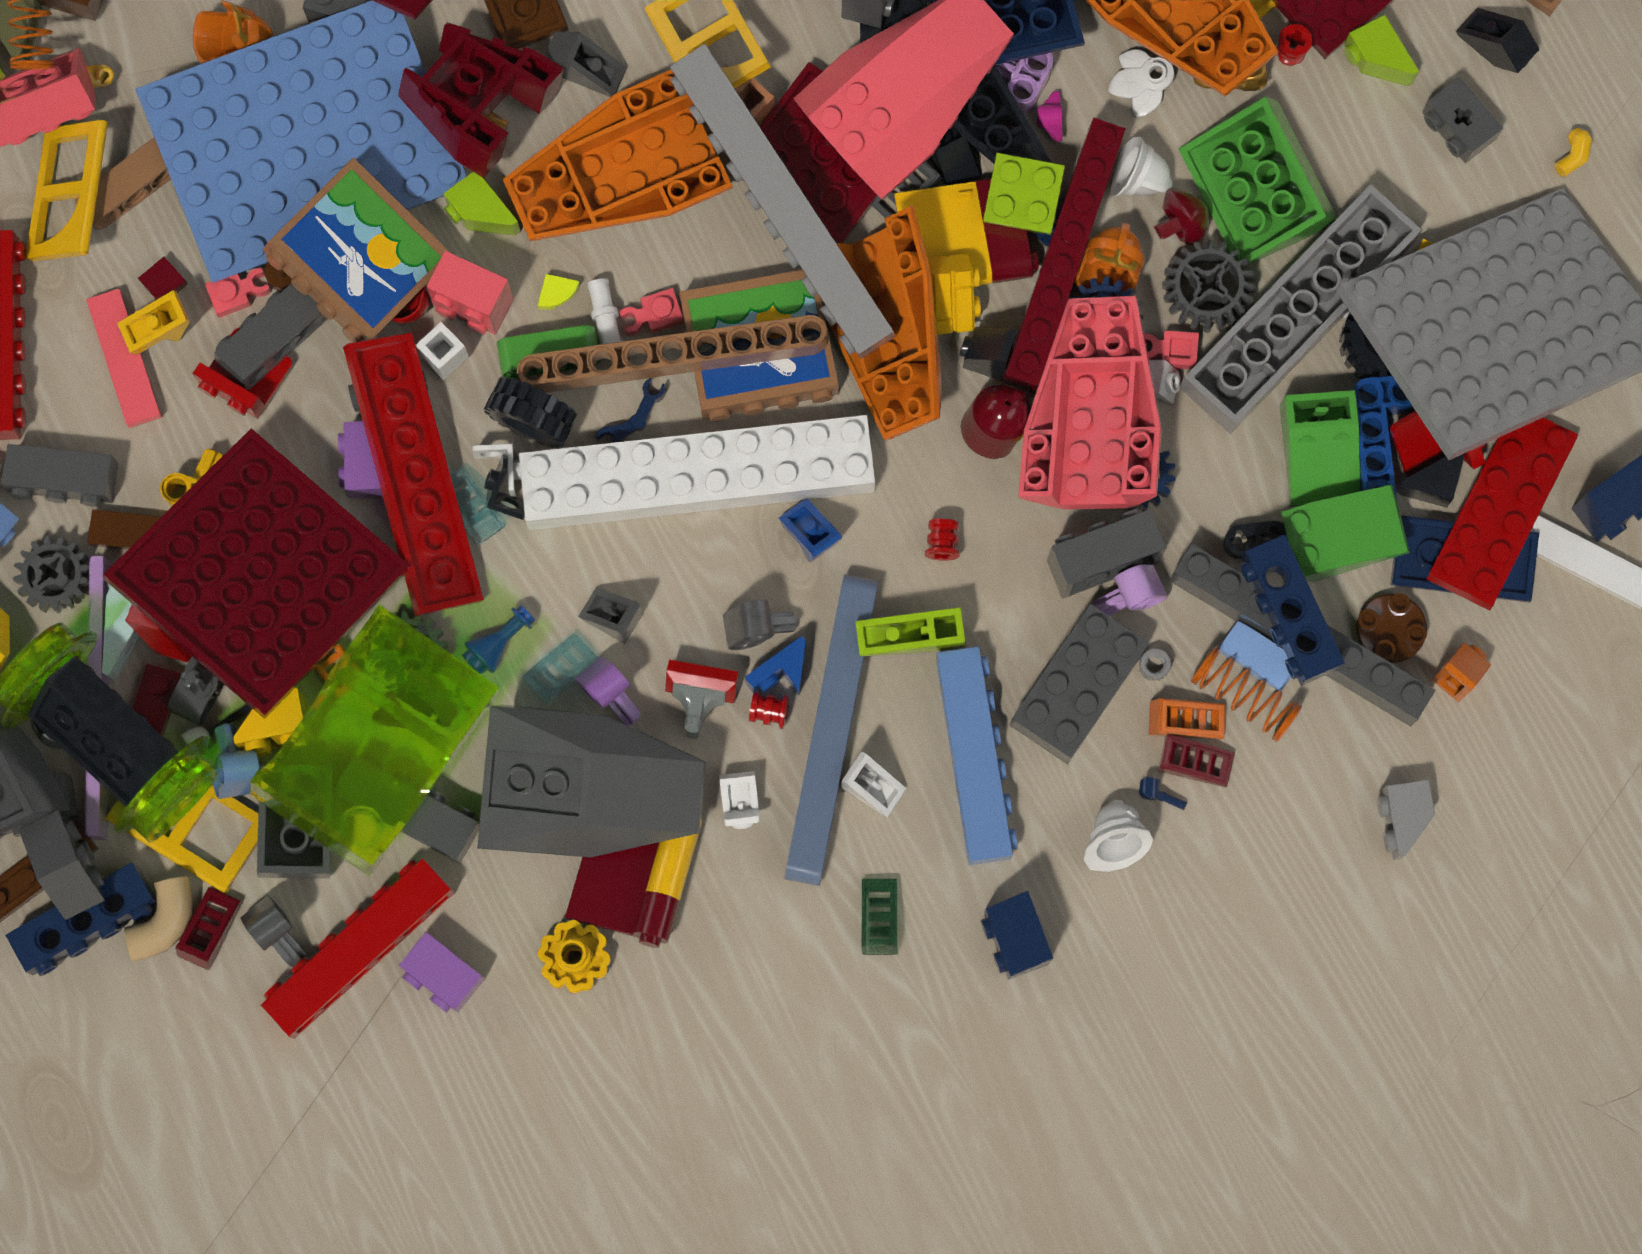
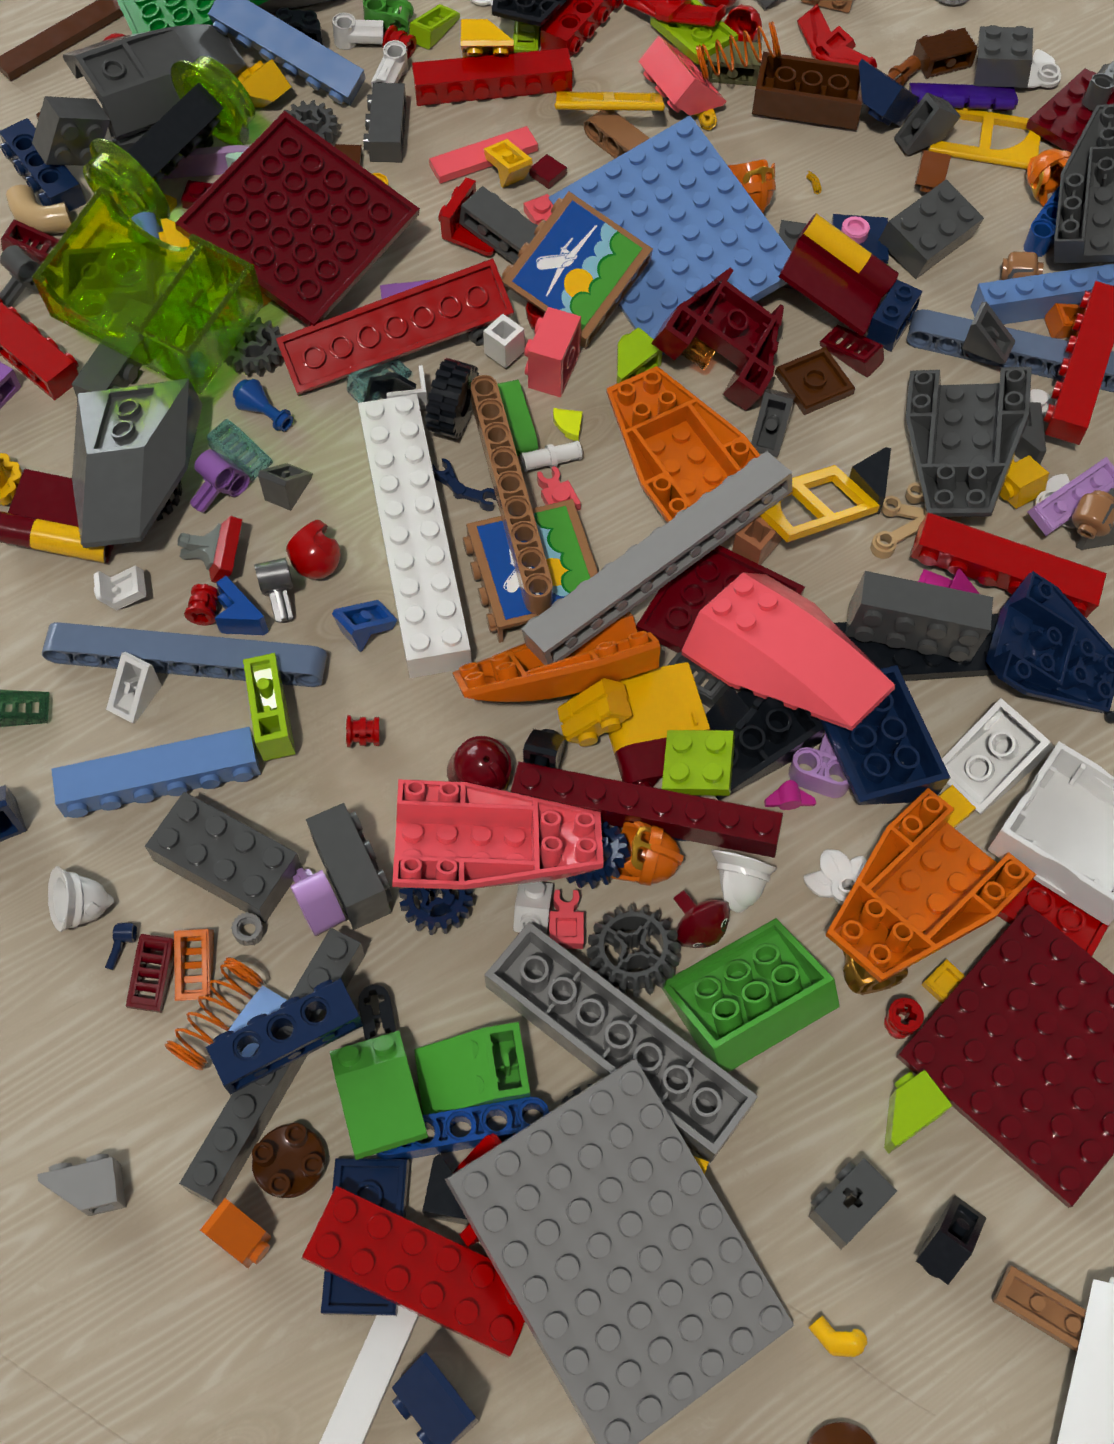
camera: 85 degrees right, 15 degrees down
(722, 580) = (312, 552): none -> red helmet

